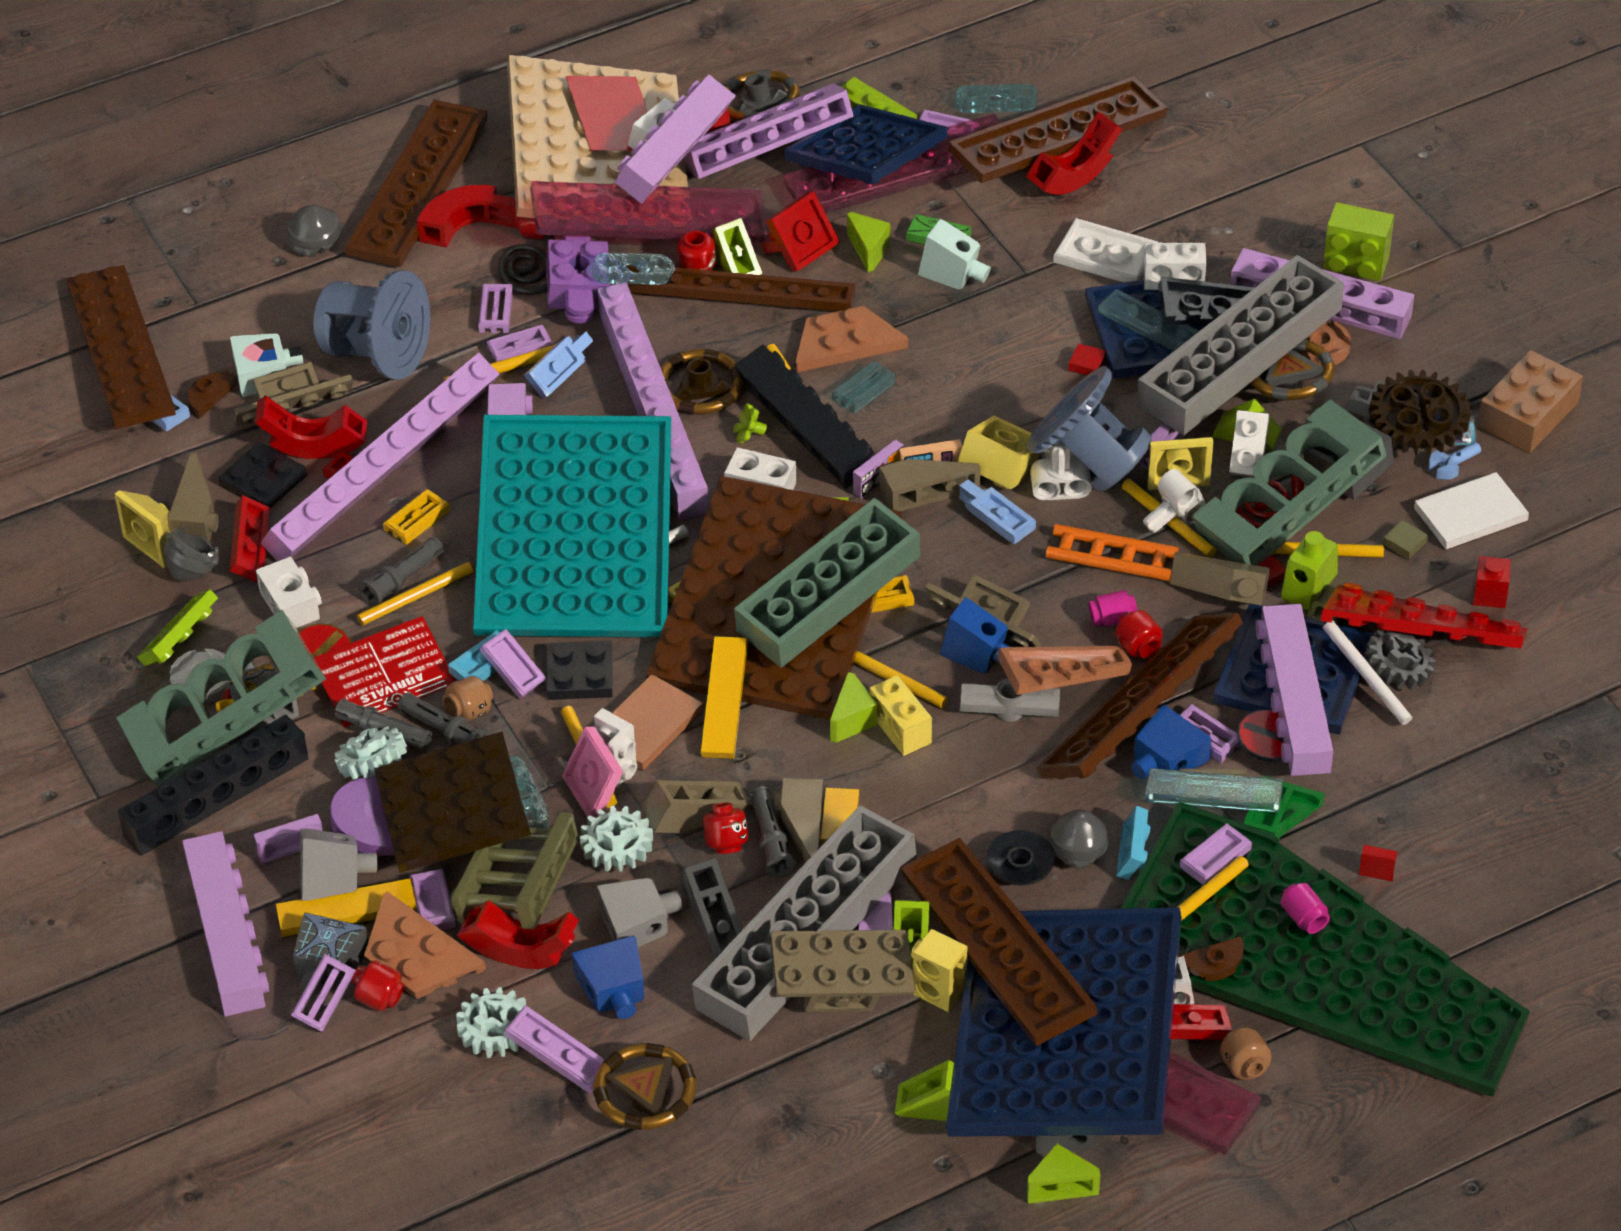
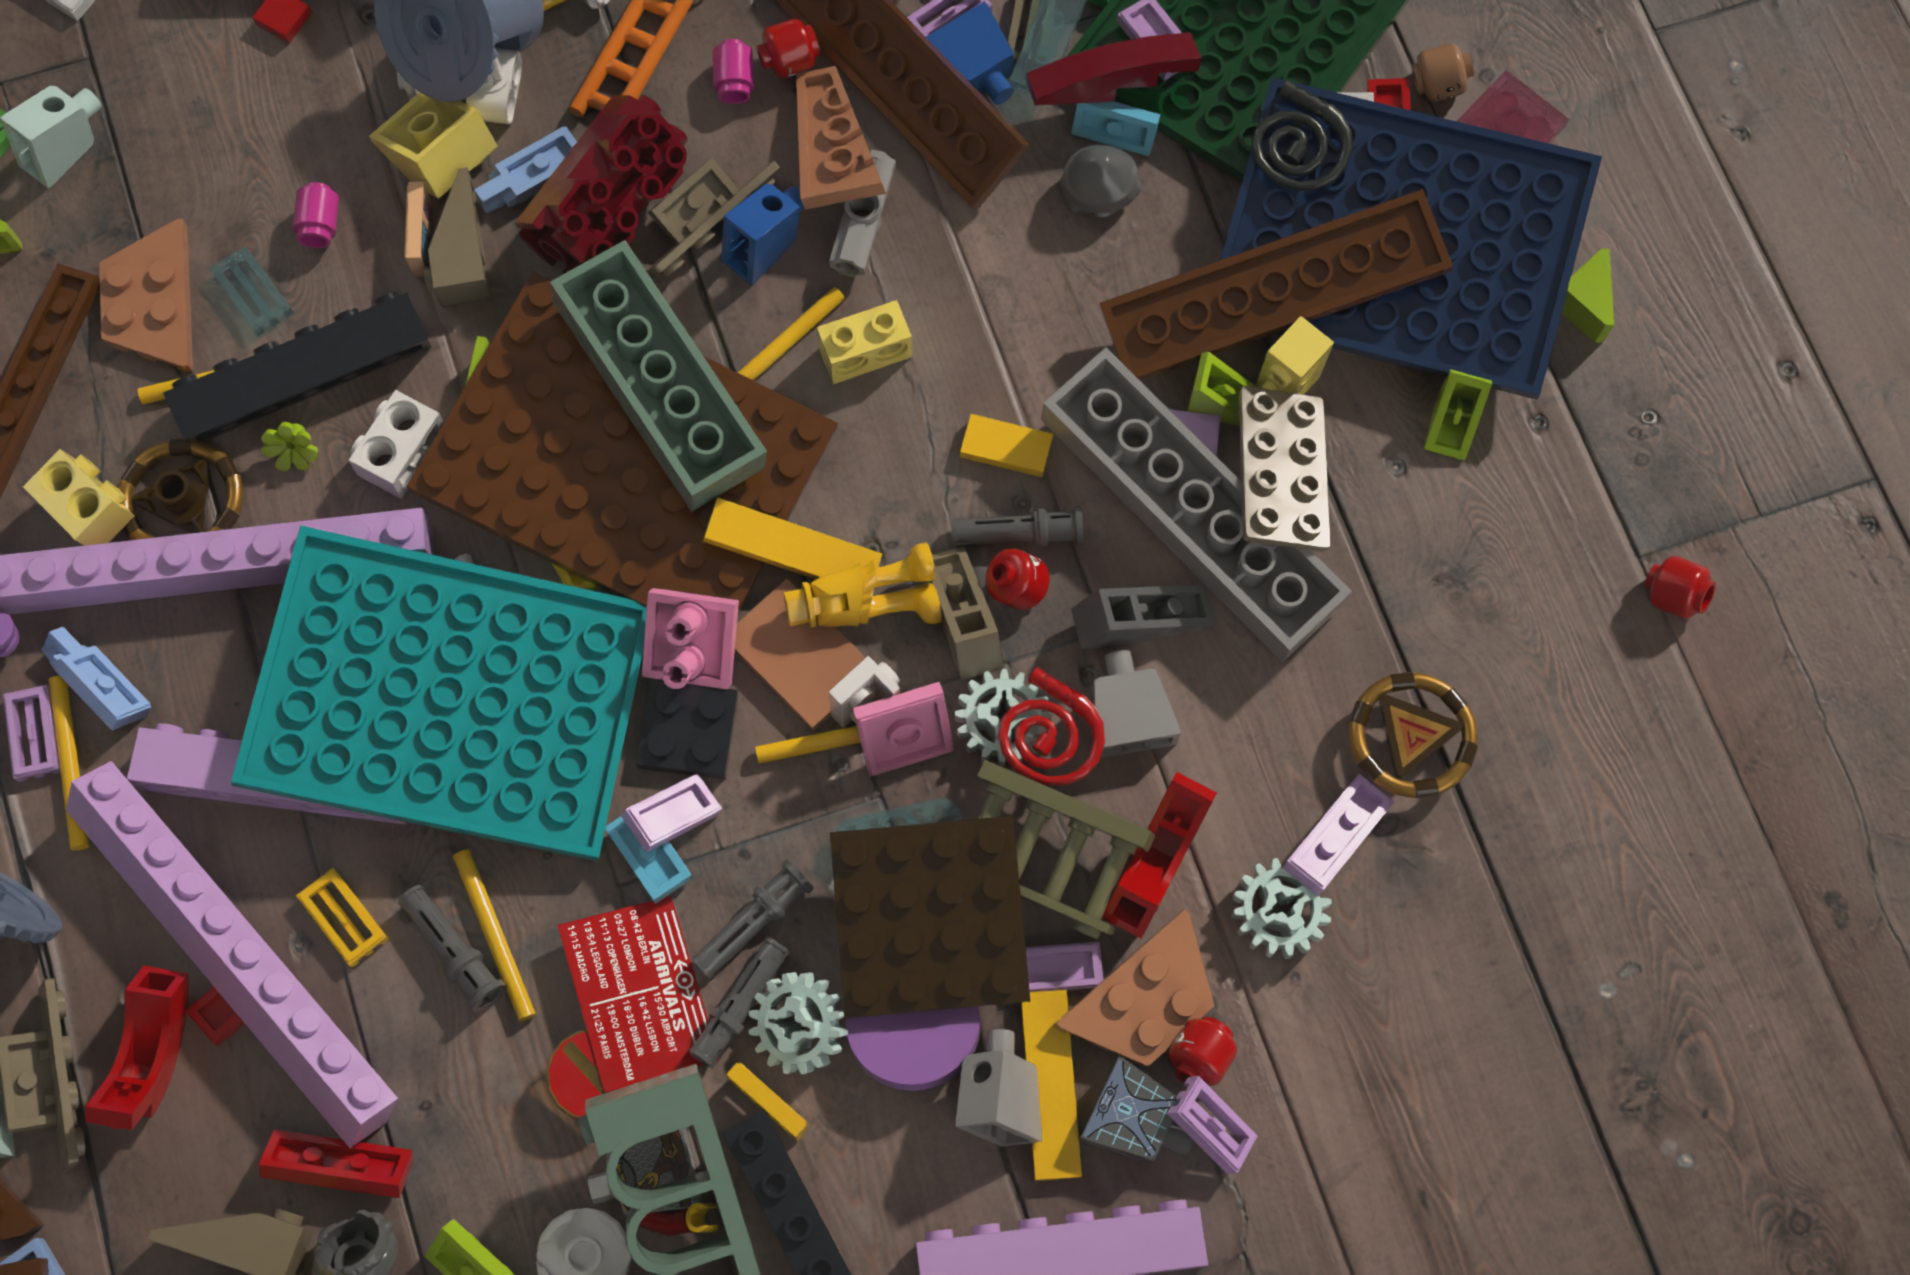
camera: 85 degrees left, 25 degrees up
(262, 475) = (200, 1136): black plate -> none
(283, 839) = (927, 1151): lavender tile -> none
(288, 589) = (490, 1116): white brick -> none
(314, 748) = (768, 1101): none -> yellow tile
(468, 698) = (721, 881): medium nougat head -> none
(611, 976) = (1230, 749): blue torso -> none
(626, 869) = (1046, 741): none -> red piece
(639, 648) = (689, 639): none -> bright pink plate
(681, 327) = (71, 495): none -> light yellow brick
(690, 731) = (848, 595): none -> yellow piece
(801, 813) = (1012, 485): dark tan slope -> none
(853, 711) = (837, 396): lime slope -> none
(867, 475) = (420, 296): lavender tile -> none
(927, 403) = (315, 215): none -> dark pink brick
(986, 541) = (604, 183): none -> dark red brick
(1020, 857) = (1117, 233): black dish -> none
(1118, 931) = (1297, 149): none -> pearl dark grey piece
(1167, 816) = (1098, 72): none -> dark red slope
(1213, 886) = (1218, 65): yellow bar -> none
(1215, 961) = (1315, 63): reddish brown plate -> none

